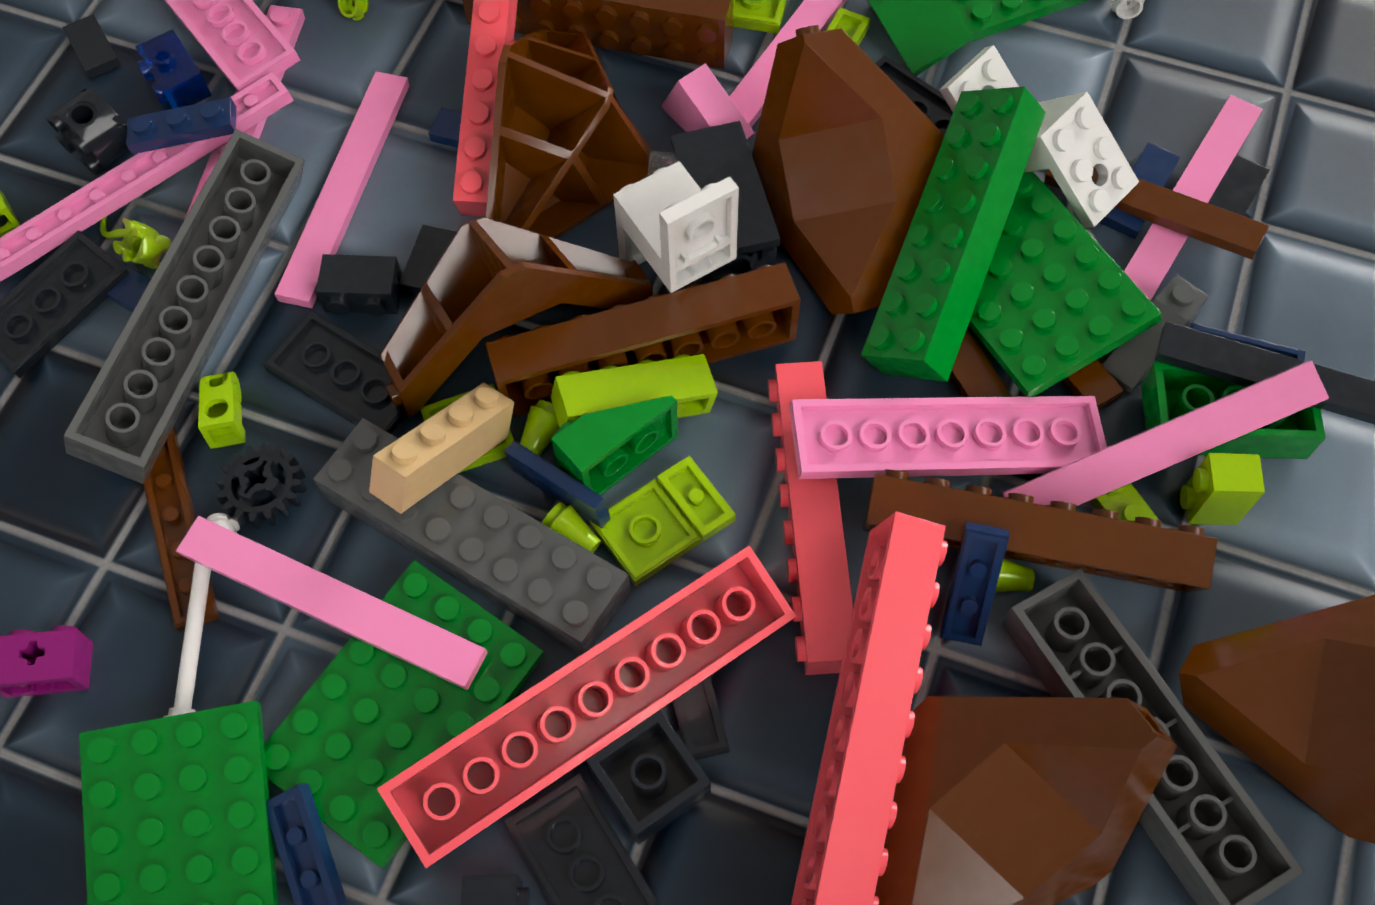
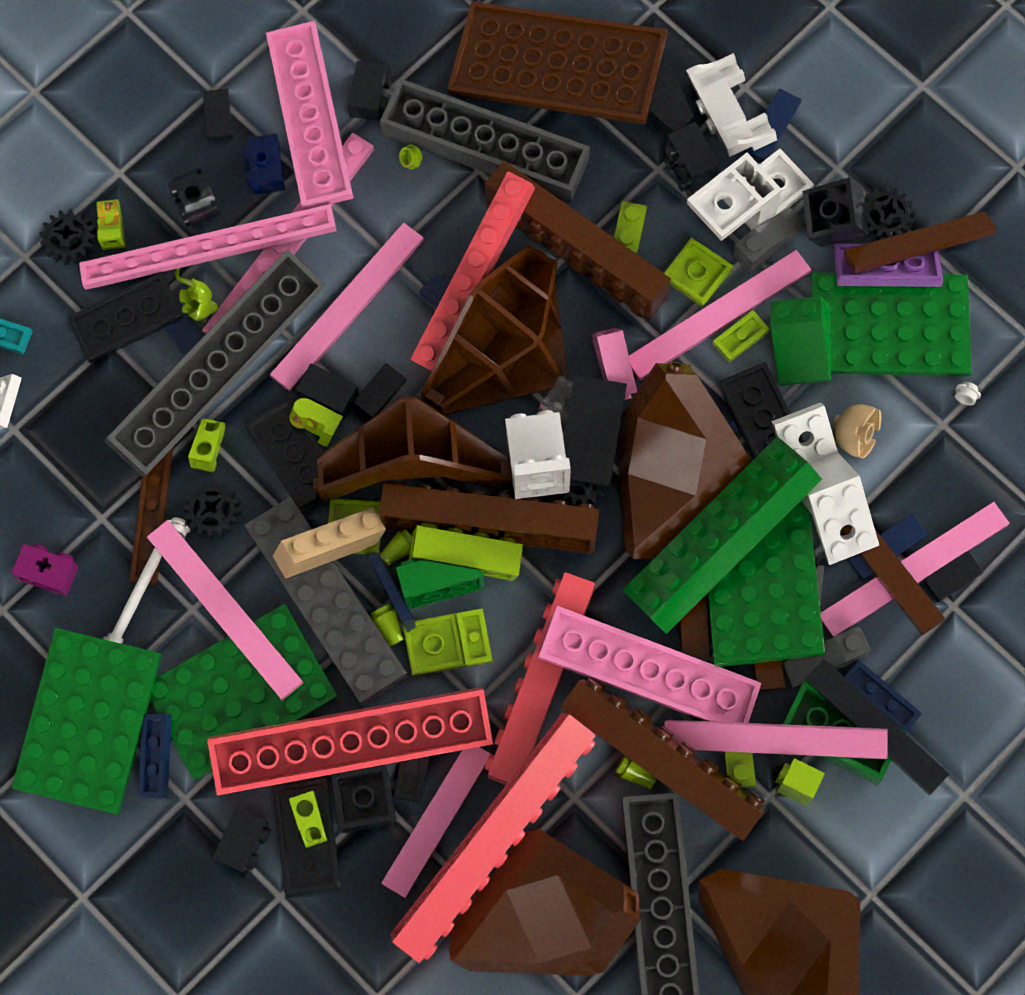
camera: 25 degrees right, 10 degrees up
(181, 125) = (254, 223): dark blue plate -> none
(357, 318) = (315, 419): none -> lime leg
(580, 842) = (308, 819): none -> lime leg
(763, 769) = (436, 821): none -> bright pink tile
(974, 583) = (609, 772): dark blue tile -> none
(1033, 68) = (855, 429): none -> tan cylinder

